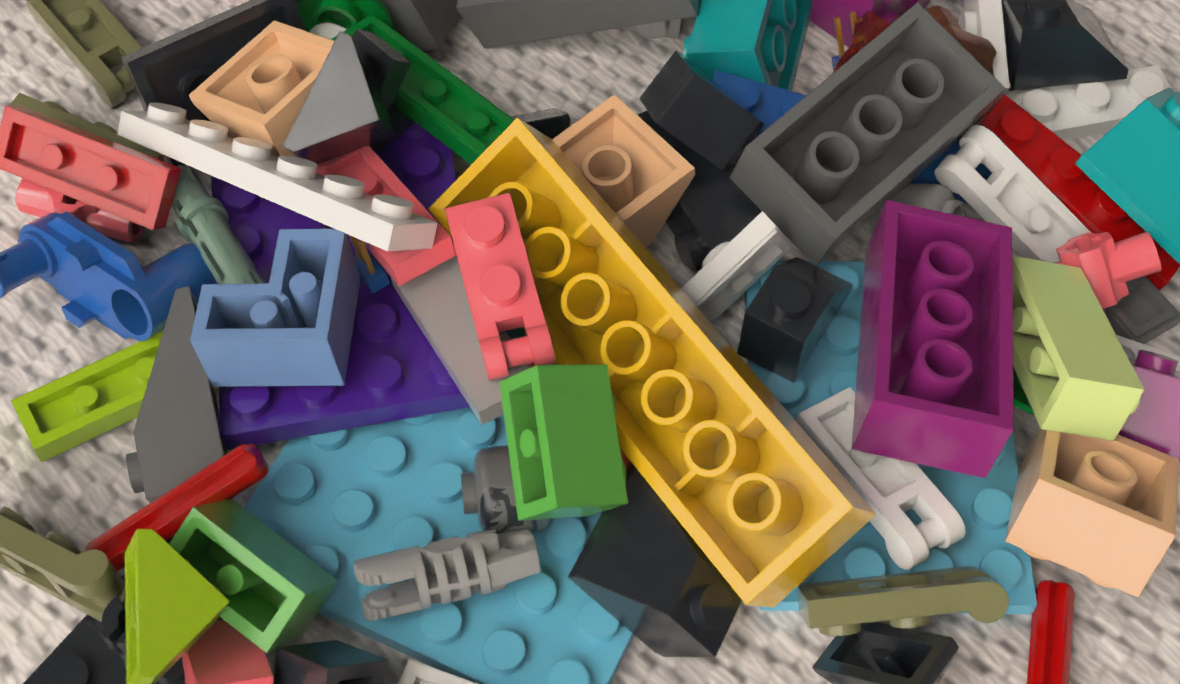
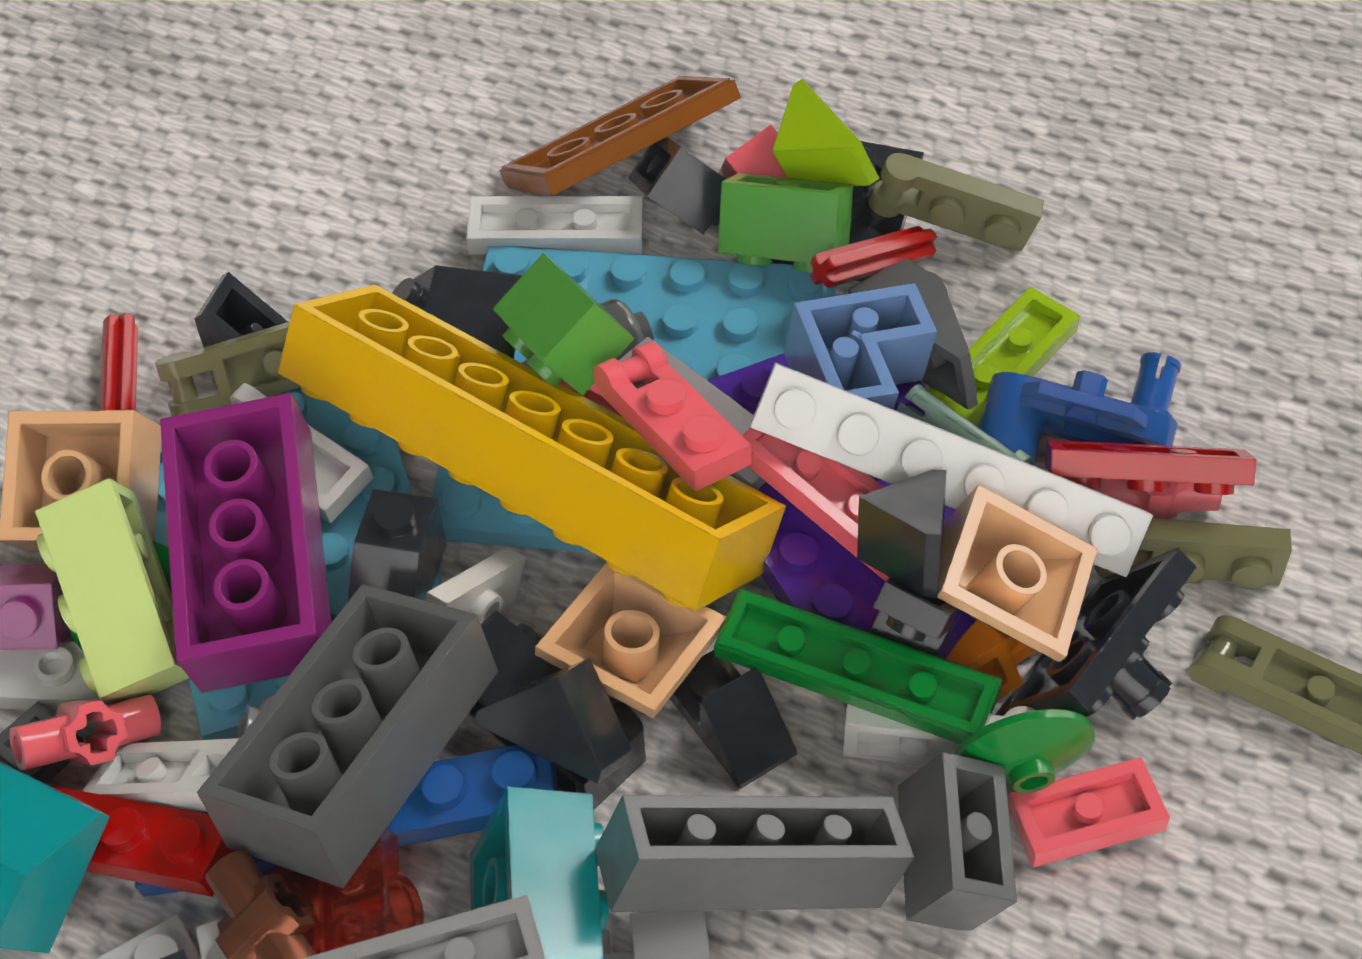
camera: 165 degrees right, 5 degrees down
(445, 571) = (642, 267): light grey hinge -> none

